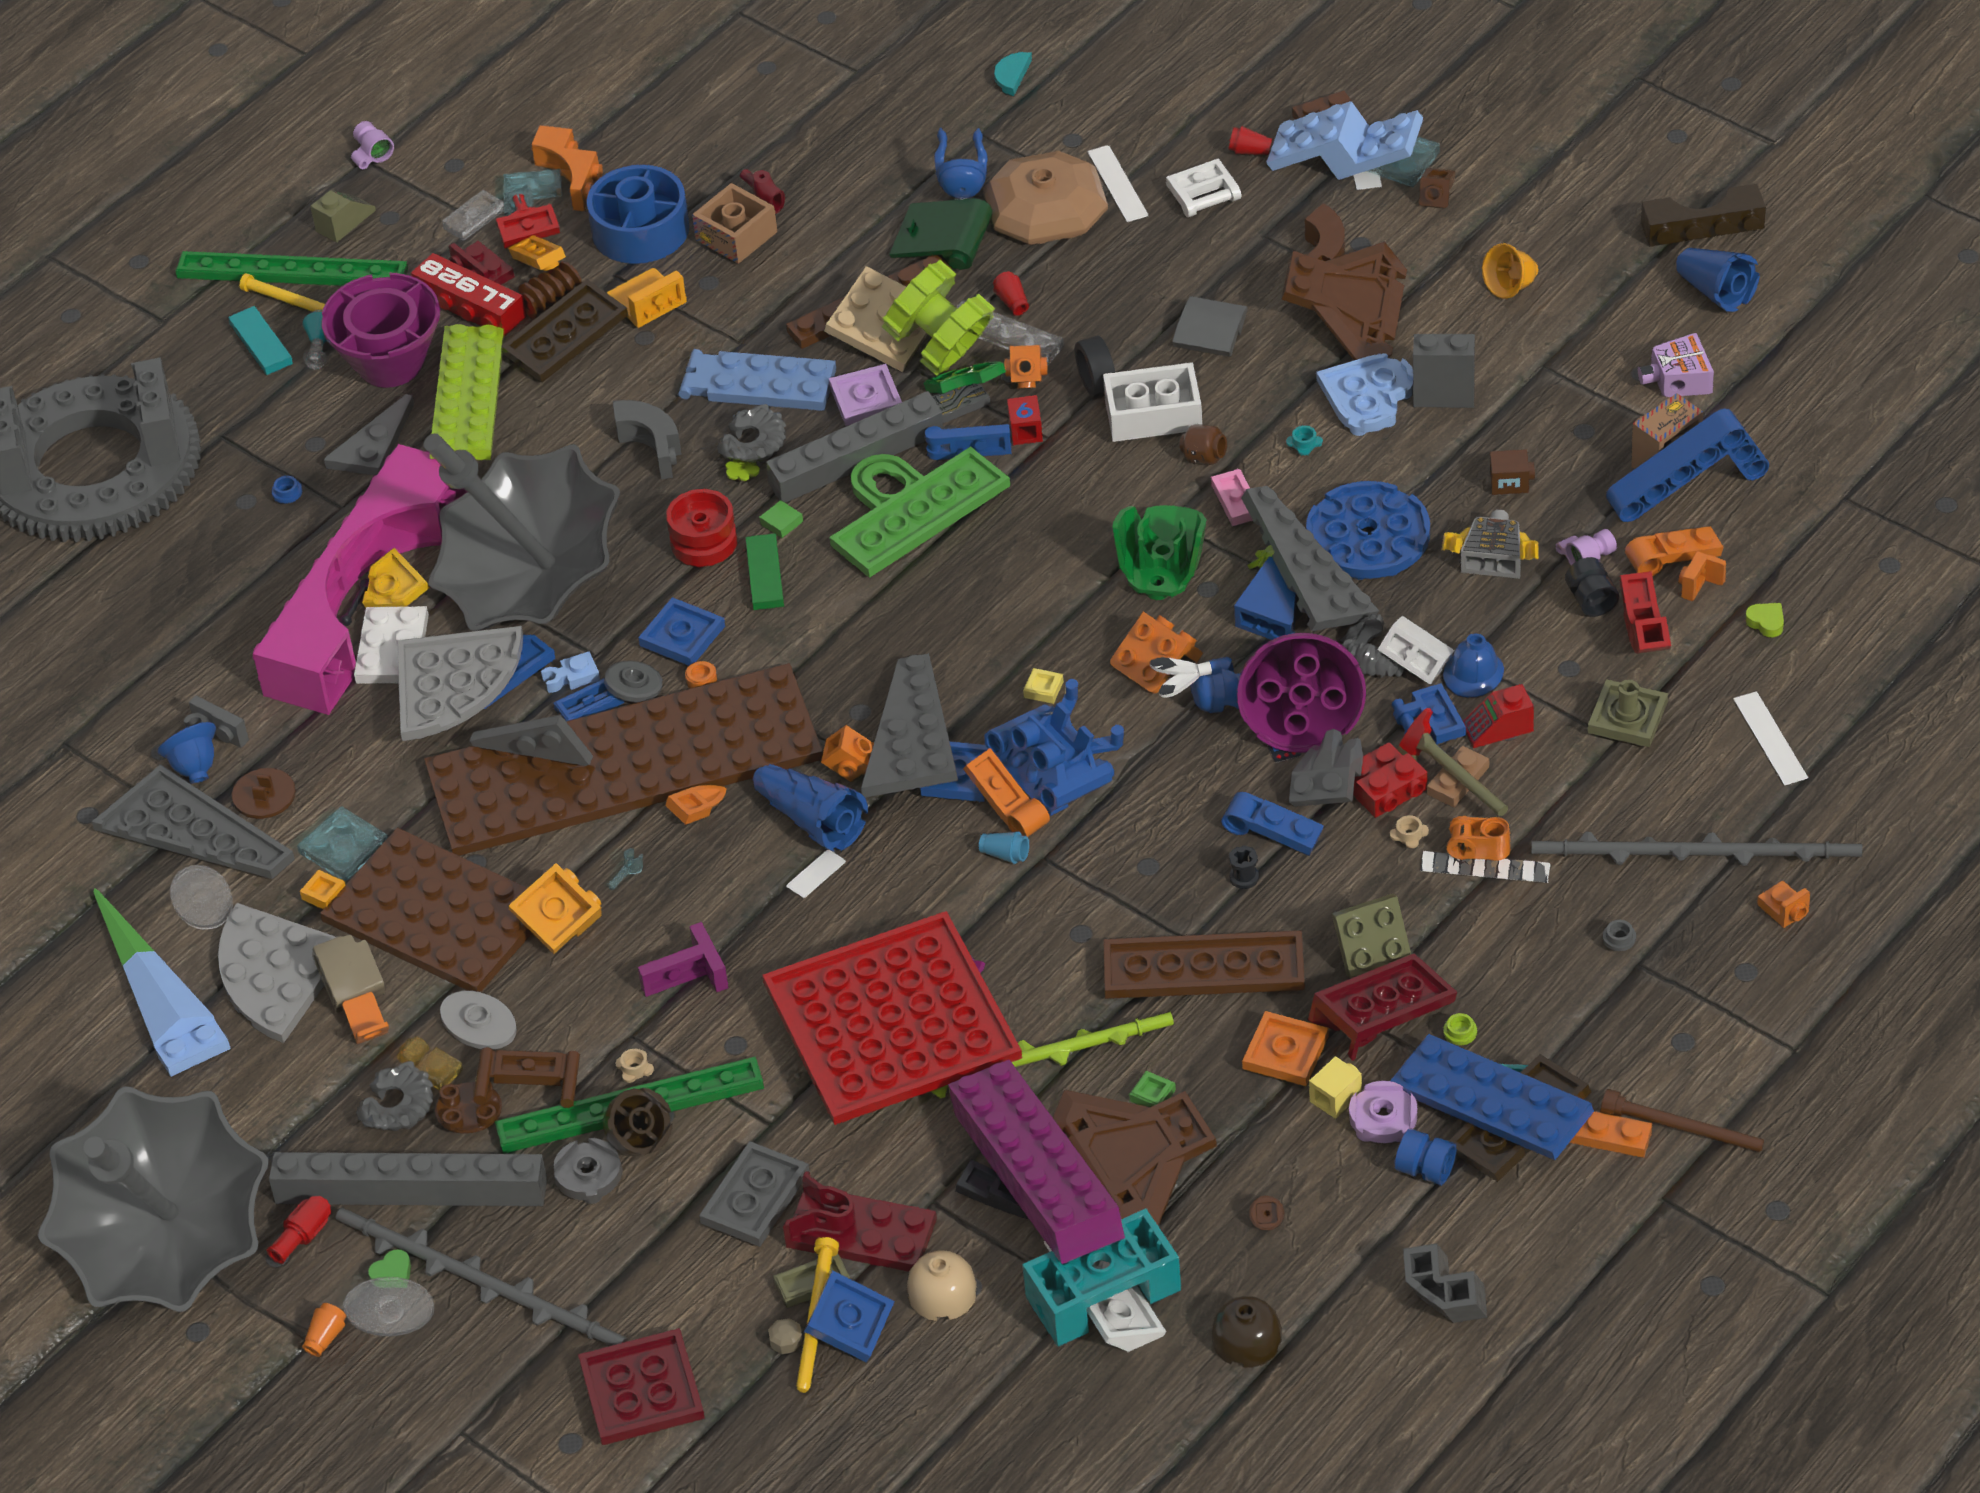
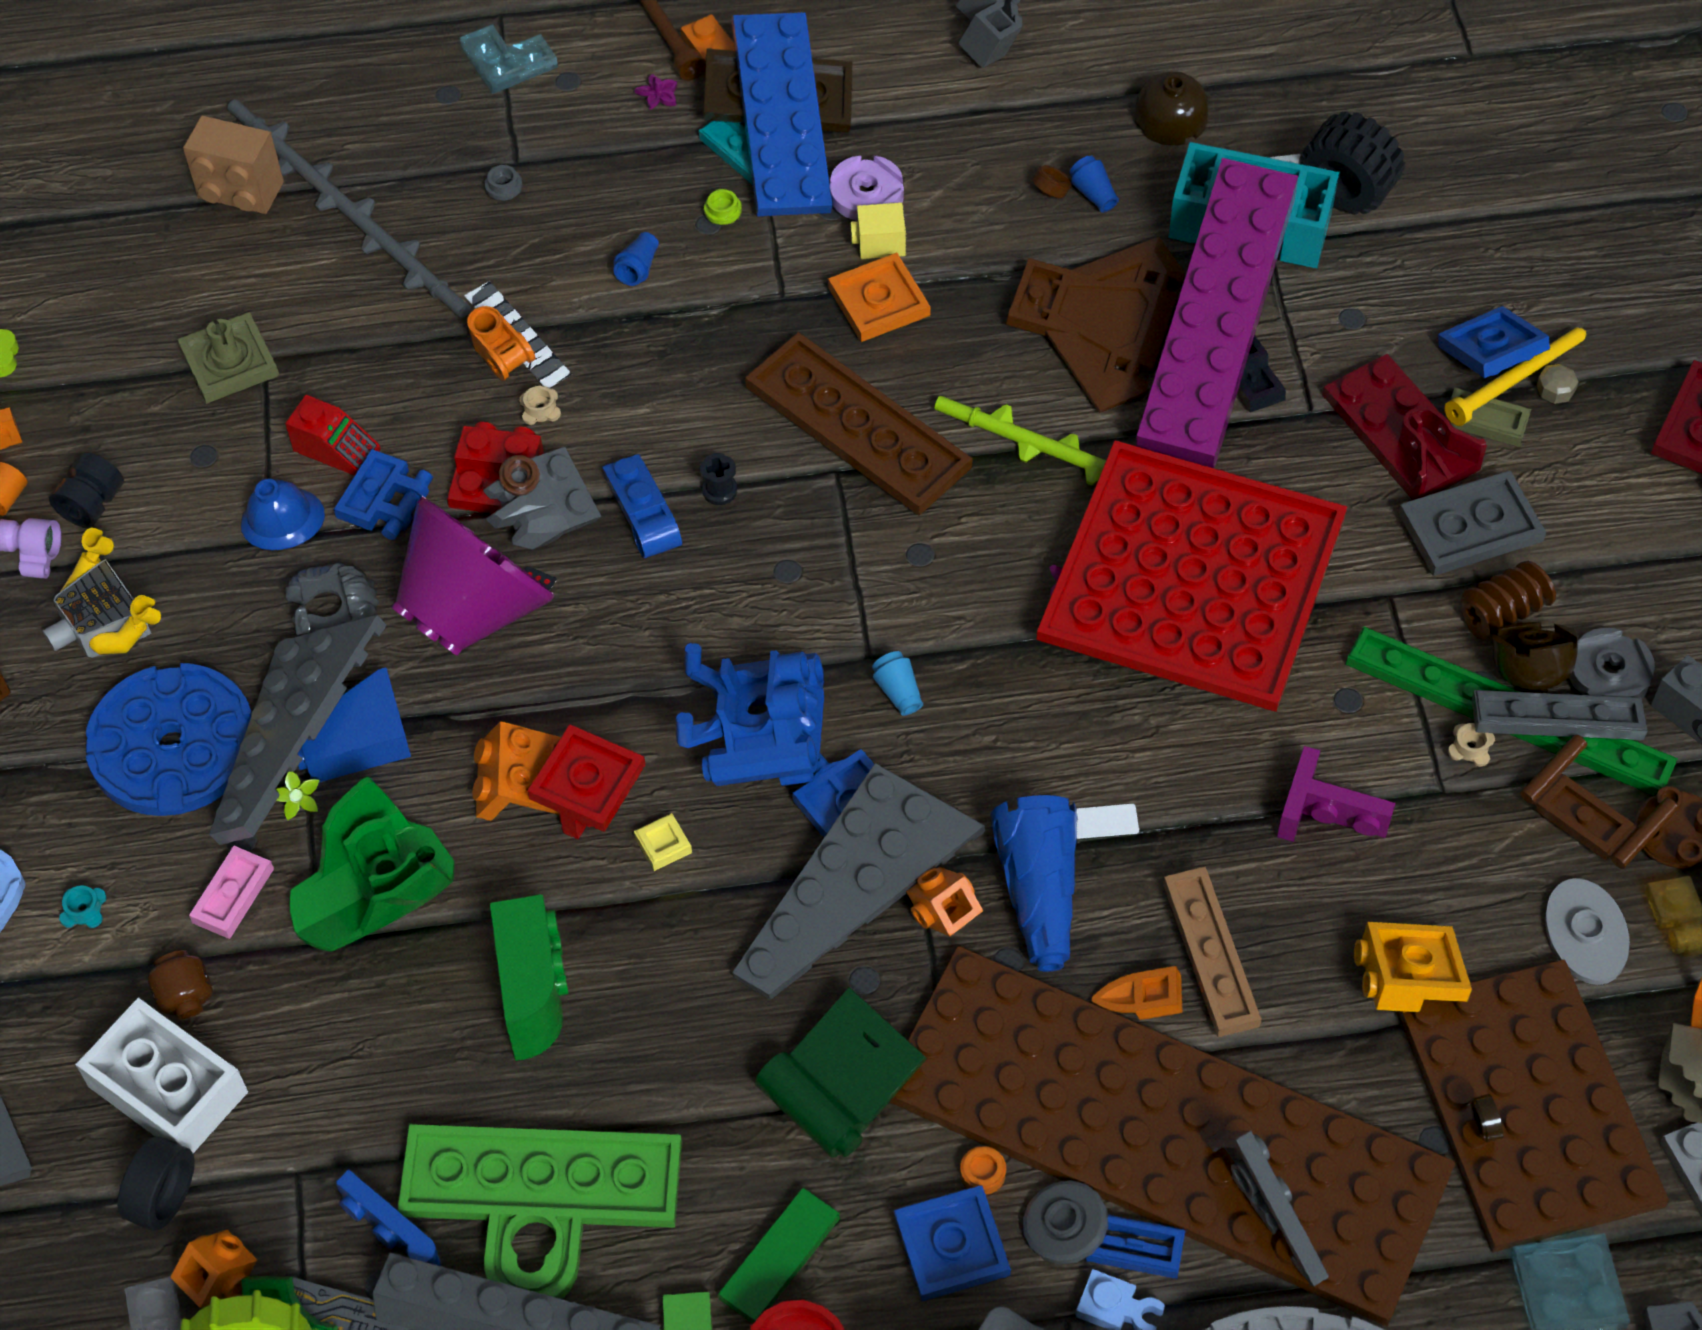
camera: 140 degrees left, 10 degrees up
(321, 889) = (1644, 1229): light orange plate -> none
(447, 859) = (1486, 1118): none -> dark brown tile
(588, 1110) = (1558, 715): none -> dark grey tile
(631, 866) = (1284, 982): clear light blue hand -> none
(680, 848) = (1212, 952): none -> medium nougat plate
(686, 1155) = (1506, 598): none -> reddish brown piece
(816, 645) = (837, 1077): none -> dark green door
(941, 1285) = (1382, 321): tan cylinder -> none
(1006, 795) = (845, 718): orange plate -> none
(1024, 420) = (300, 1198): red brick -> none
(1028, 561) = (529, 973): none -> green brick
(1062, 1351) = (1363, 156): none -> black tyre
(1107, 656) = (586, 780): none -> red bracket
(1152, 1090) = (1025, 355): bright green tile -> none
(1211, 682) = (530, 672): hair -> none
(1237, 1232) = (1093, 182): none -> blue cone
(1340, 747) = (523, 464): none -> reddish brown plate
(1371, 934) = (700, 318): olive plate -> none
(1380, 1000) = (762, 256): dark red plate -> none
(1415, 649) = (312, 547): white hinge -> none
(1419, 739) = (425, 461): olive piece -> none
(1430, 1158) = (883, 120): blue wheel -> none
(1446, 787) = (430, 425): medium nougat plate -> none
(1467, 952) = (635, 261): none -> blue cone
(1610, 1075) = (658, 92): none -> magenta plant
(1641, 614) = (104, 415): red arch -> none
(1735, 1003) = (505, 65): none -> clear light blue plate
(1770, 738) = (150, 257): white sticker -> none
(1782, 793) = (233, 164): none -> medium nougat brick
(1785, 903) = (349, 107): orange bracket -> none

